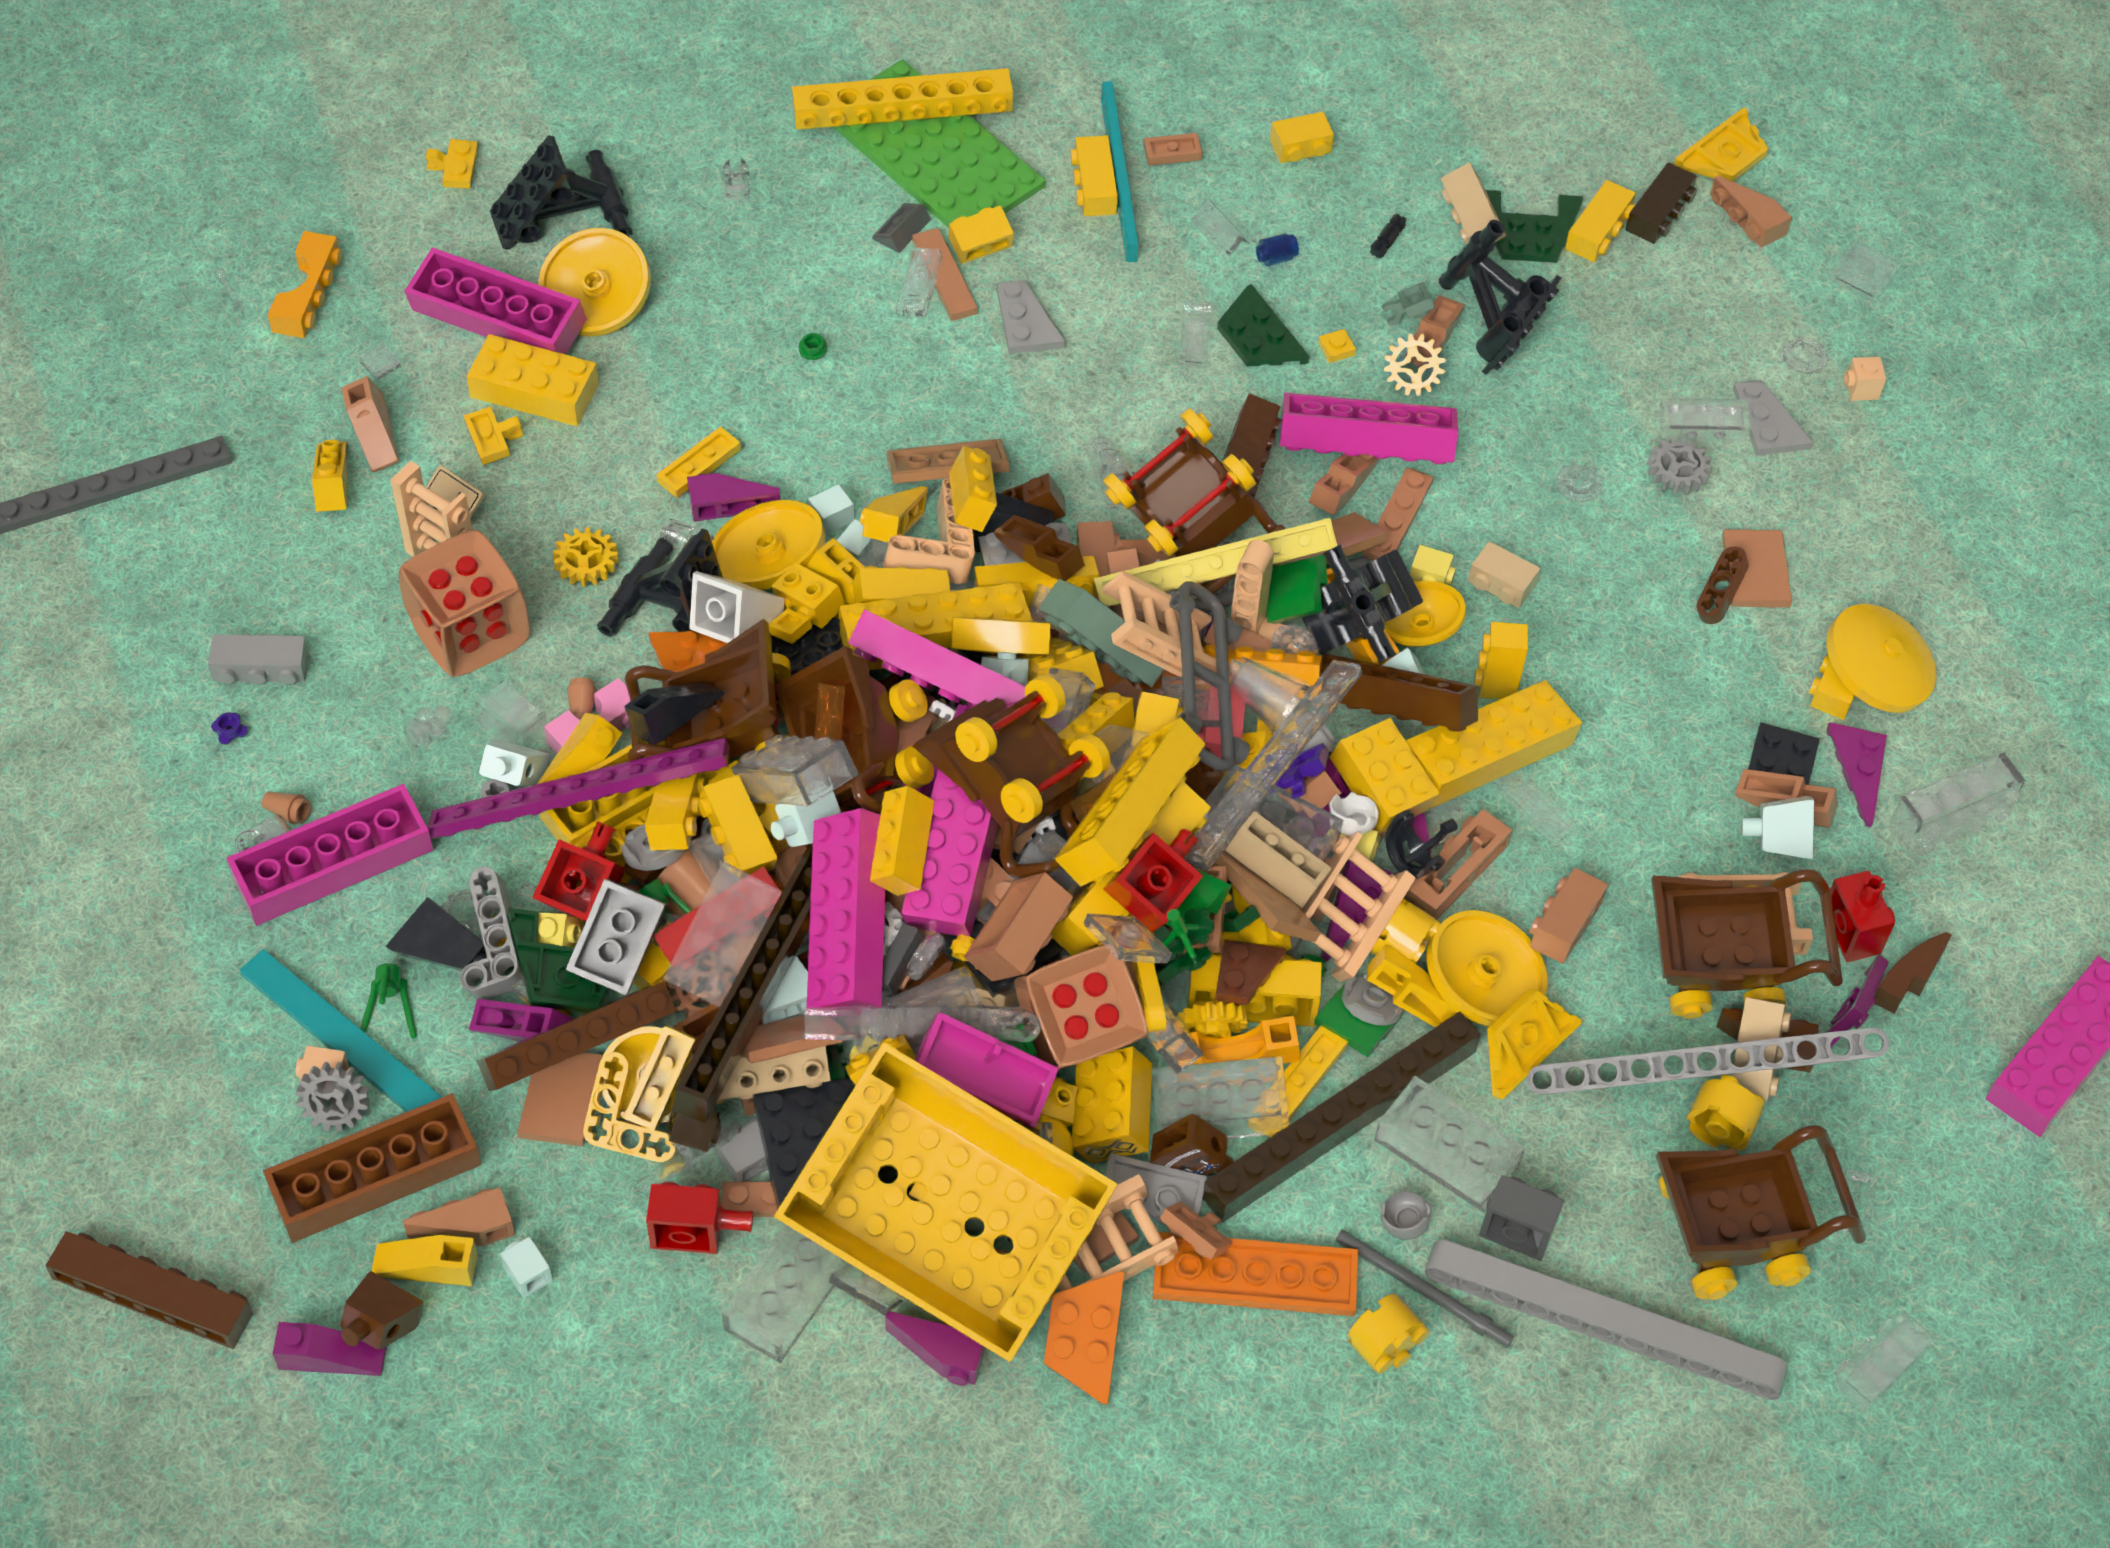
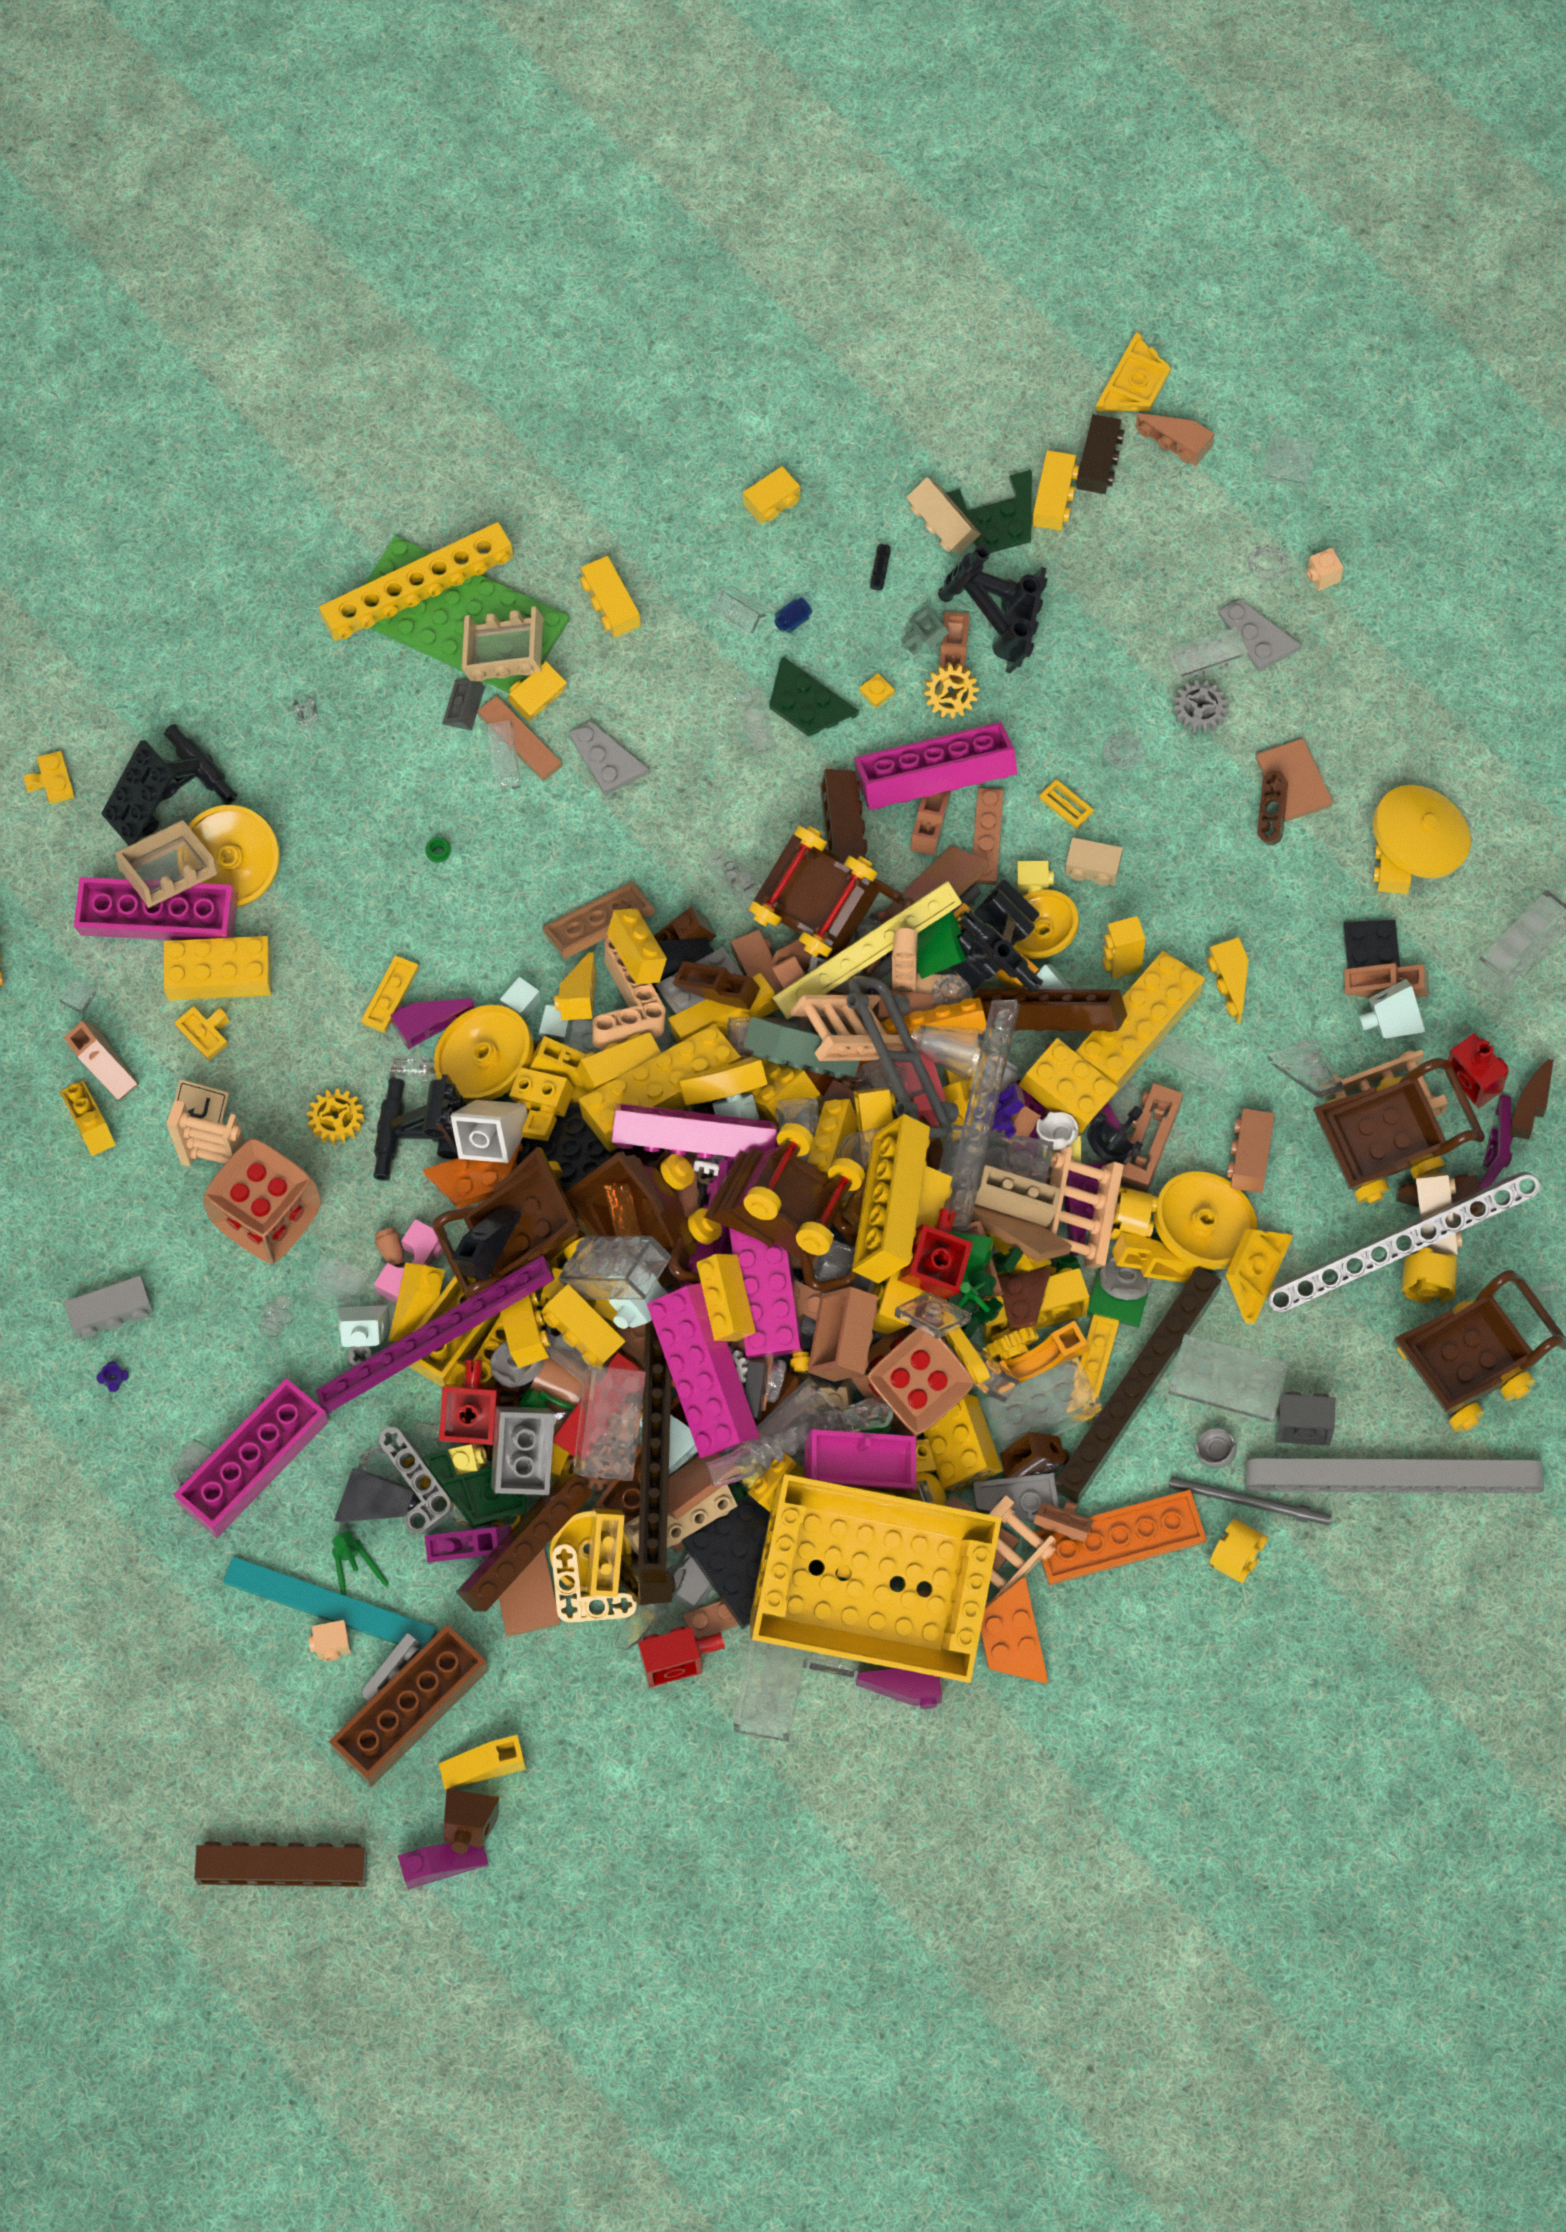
camera: 15 degrees left, 10 degrees up
(291, 807) = (194, 1428): nougat cone -> none
(332, 1096) = (352, 1660): light grey gear -> none
(389, 1107) = (403, 1653): none -> light grey plate
(476, 1217) = (504, 1719): nougat slope -> none
(522, 258) = (166, 863): none -> window
(526, 1266) = (562, 1739): light aqua brick -> none
(960, 180) = (502, 647): none -> tan window
(1124, 201) = (646, 616): teal tile -> none
(1172, 149) = (665, 545): nougat plate -> none
(1506, 531) = (1082, 818): none -> yellow tile
(1616, 724) = (1230, 966): none -> yellow slope
(1663, 849) = (1308, 1067): none -> clear wing
(1861, 761) = (1433, 924): magenta wing -> none

